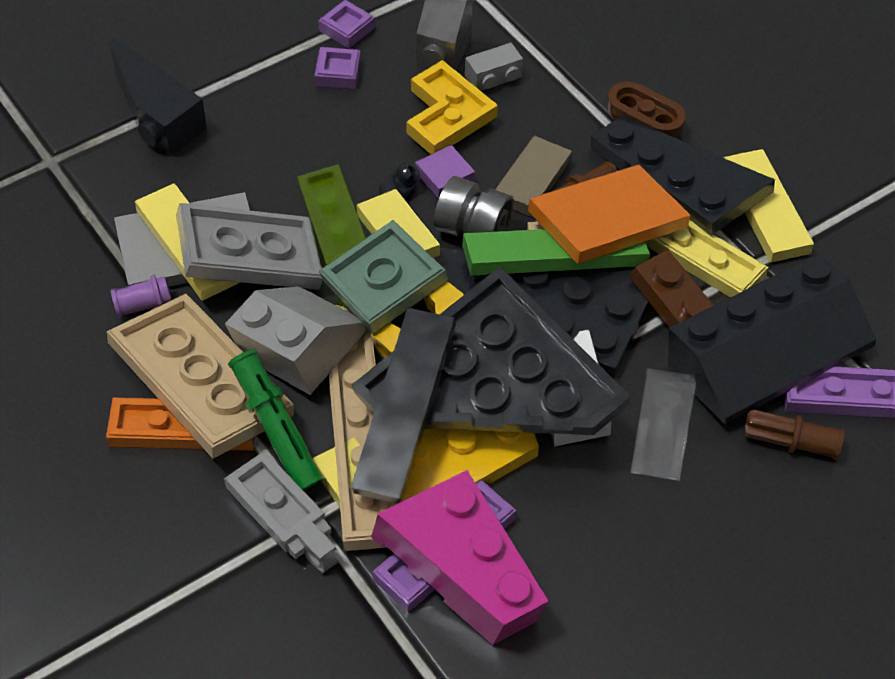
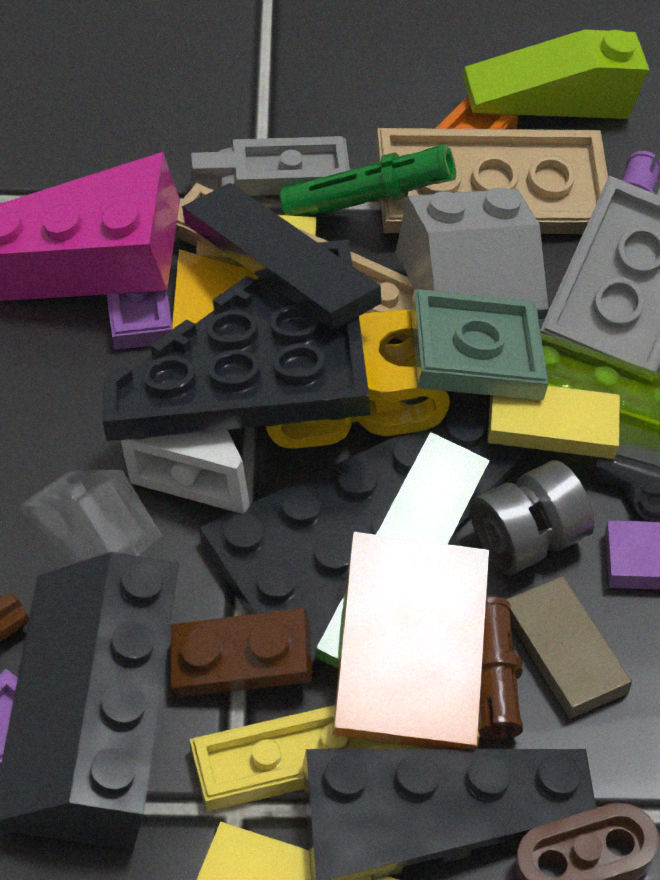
camera: 125 degrees right, 0 degrees up
(69, 375) = (563, 77): none -> lime slope

